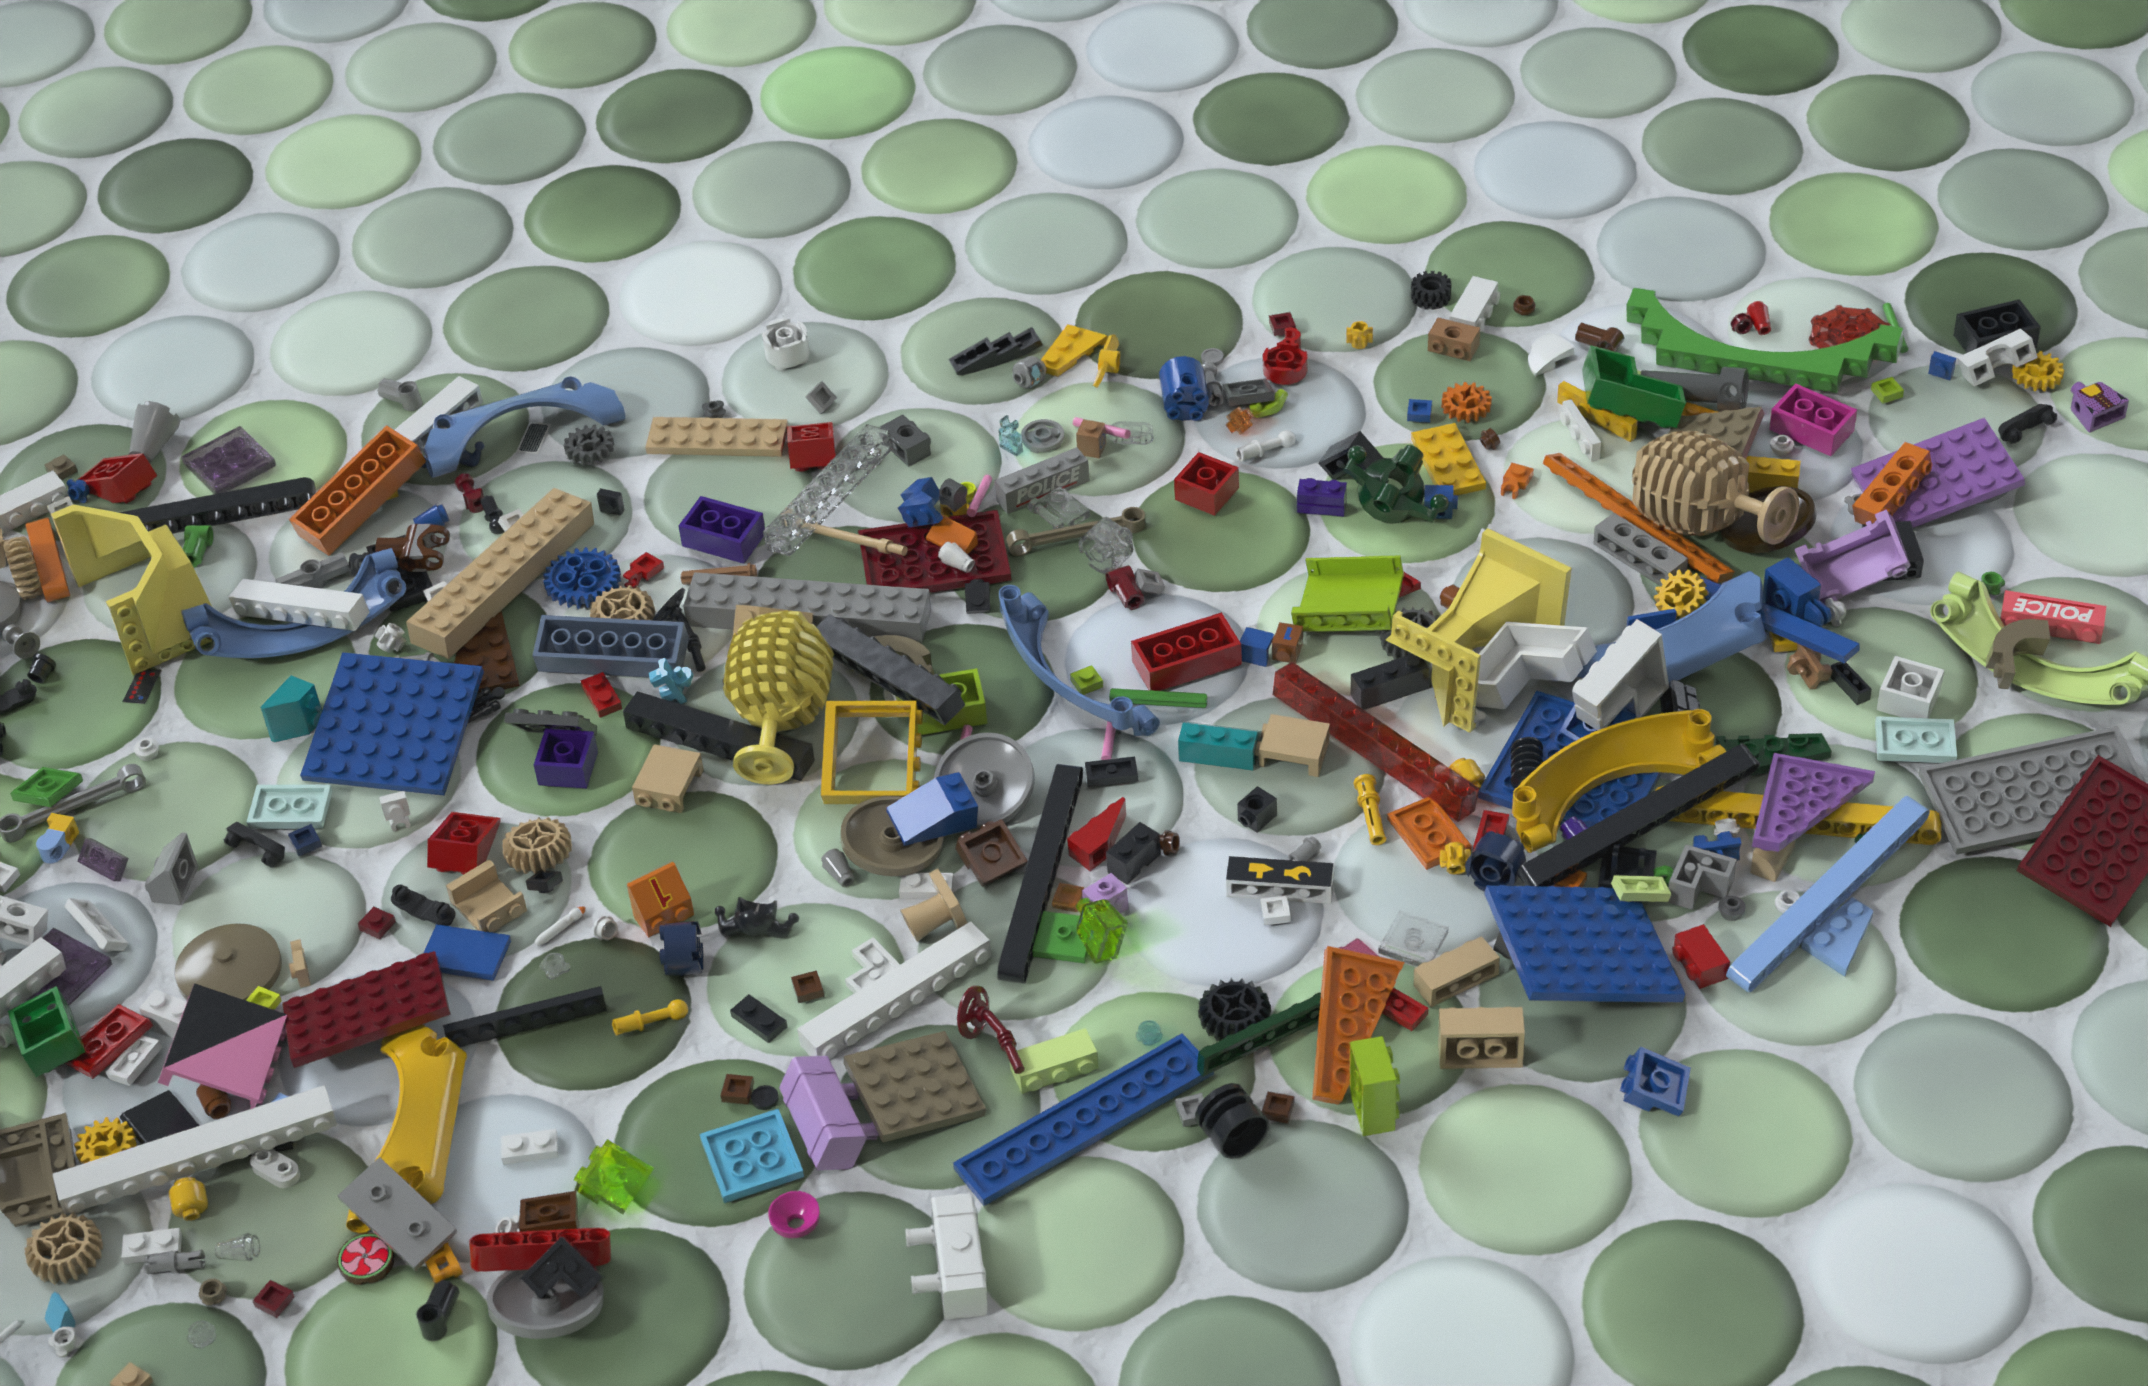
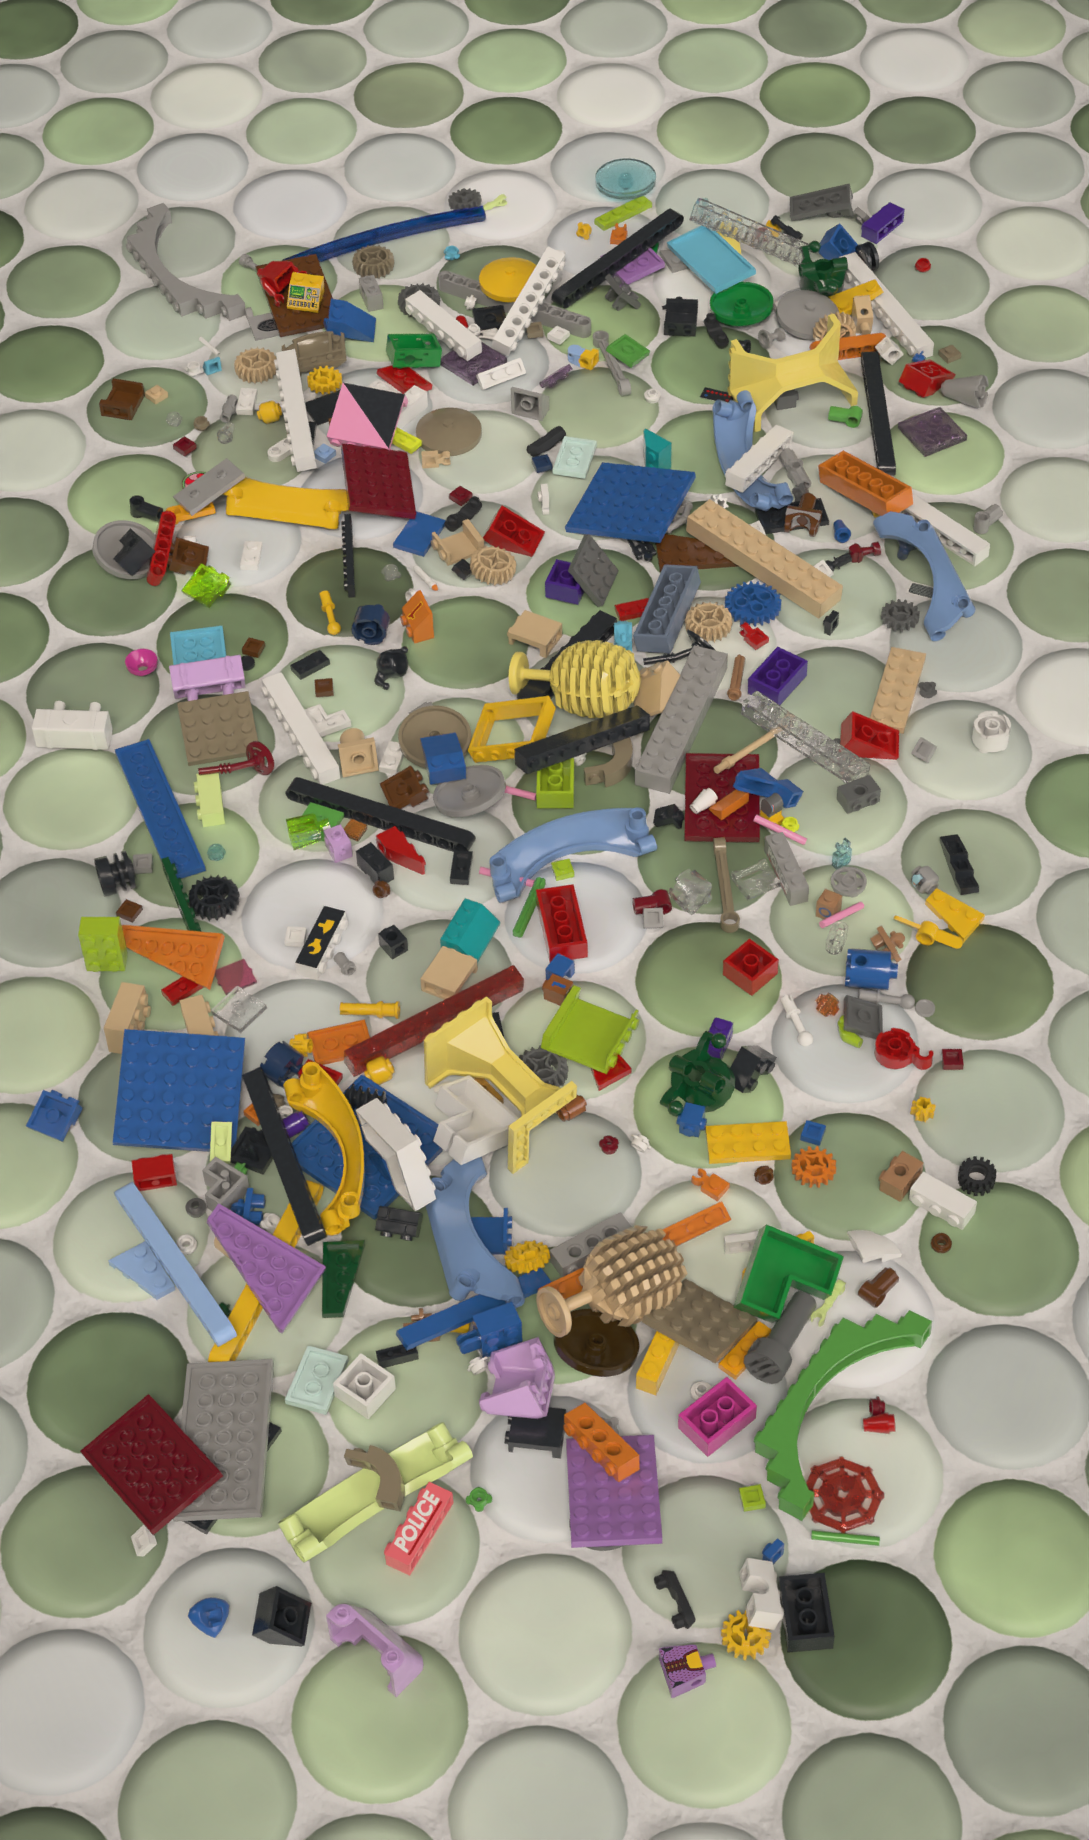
camera: 100 degrees right, 5 degrees up
(1133, 384) = (894, 941): none -> medium nougat hips

